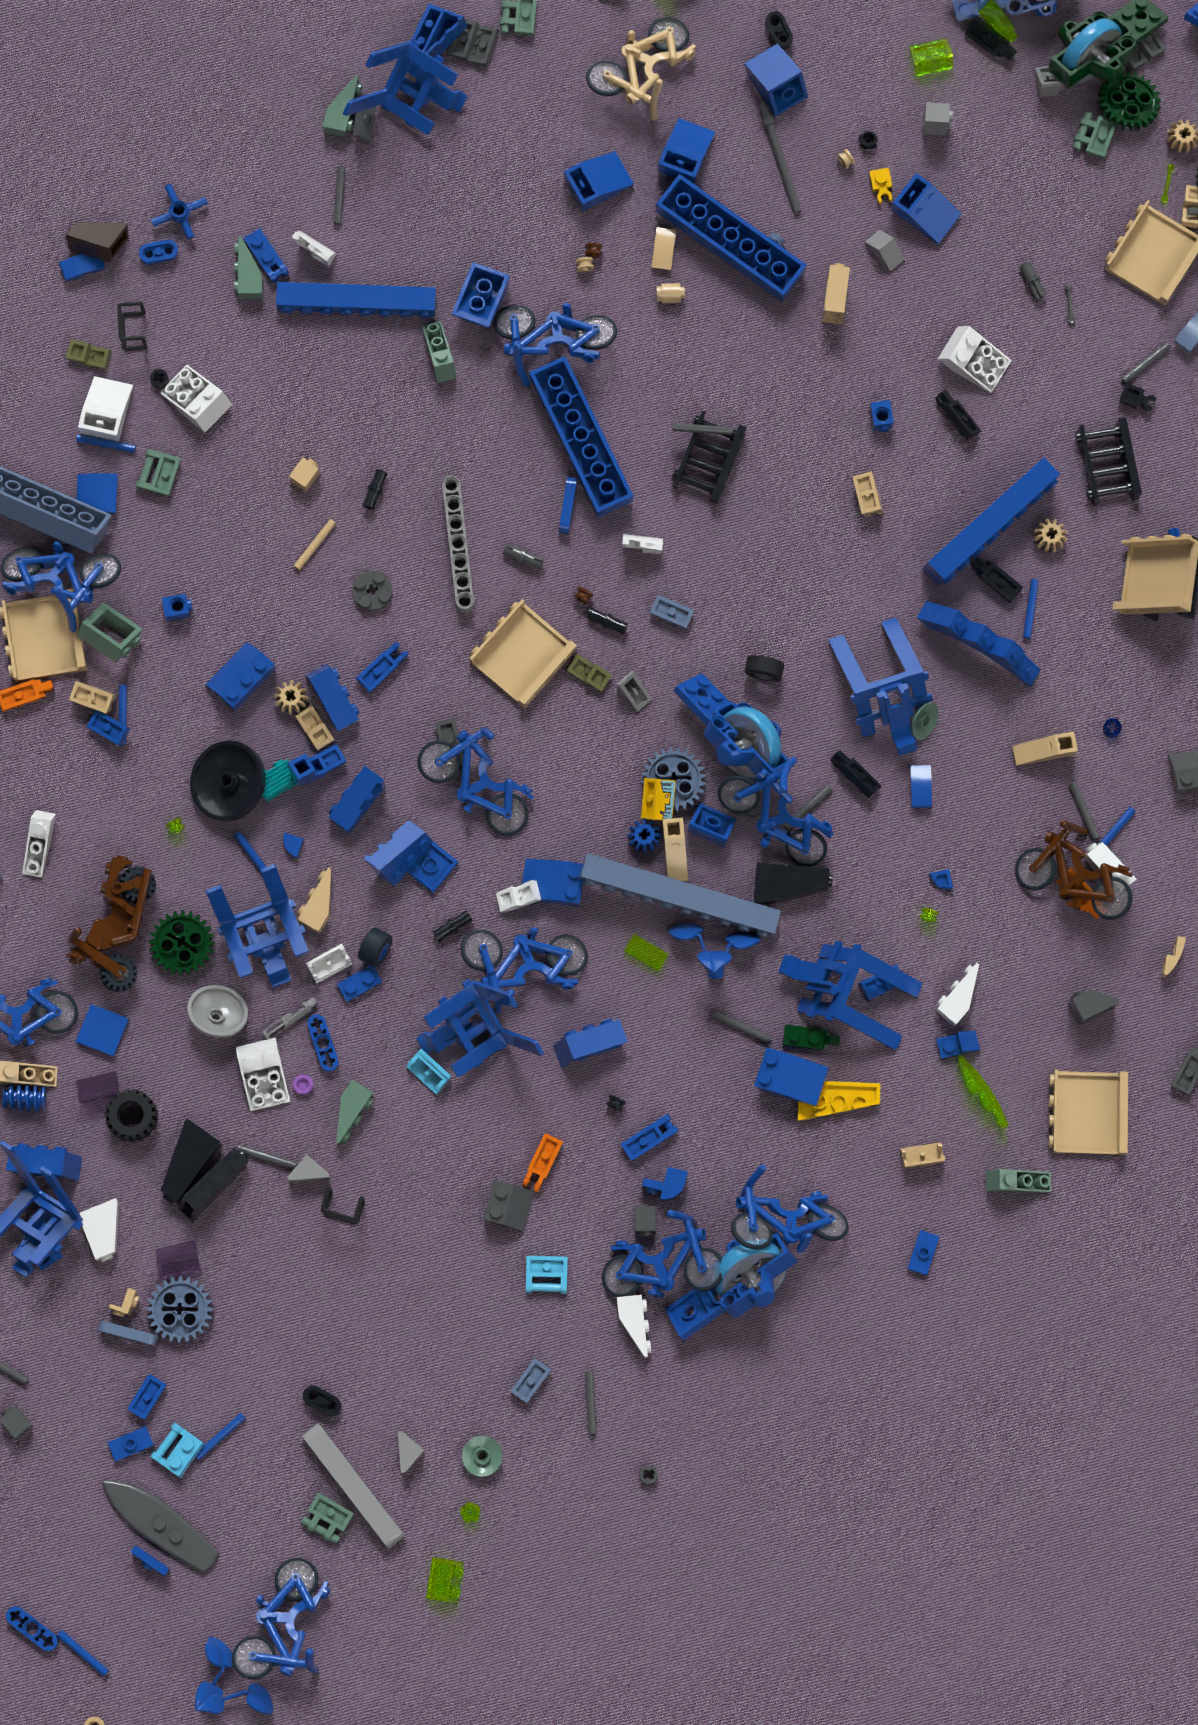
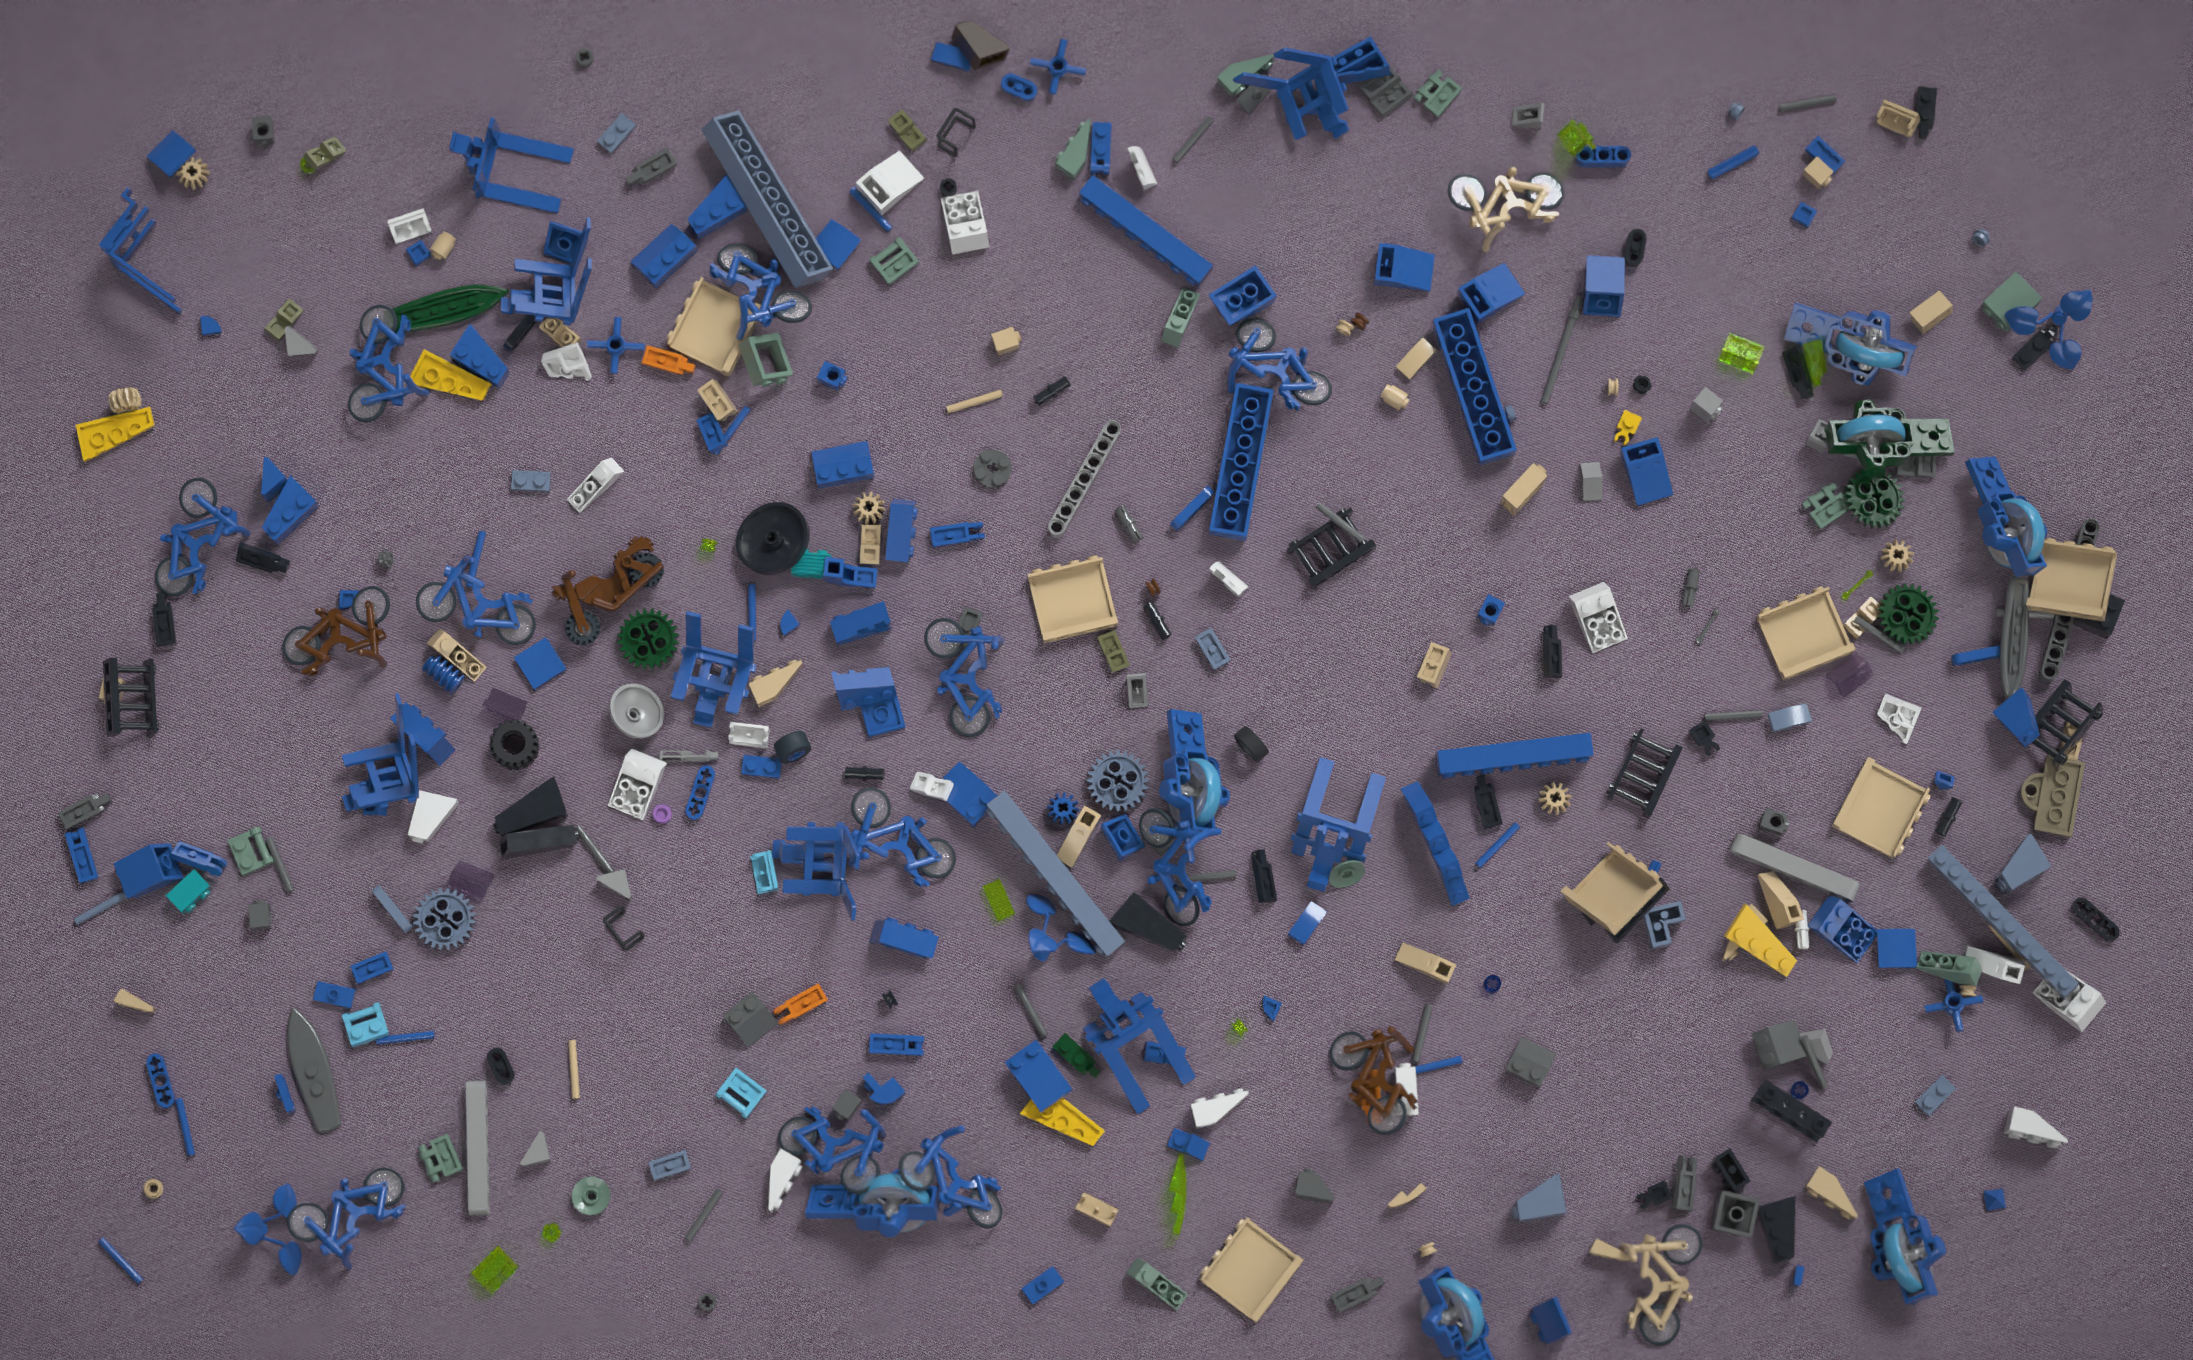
camera: 40 degrees right, 0 degrees up
(130, 1300) = (411, 885): tan bracket -> none
(352, 1104) = (687, 856): sand green slope -> none
(387, 1358) = (574, 1069): none -> tan bar
(658, 799) = (1093, 787): yellow panel -> none

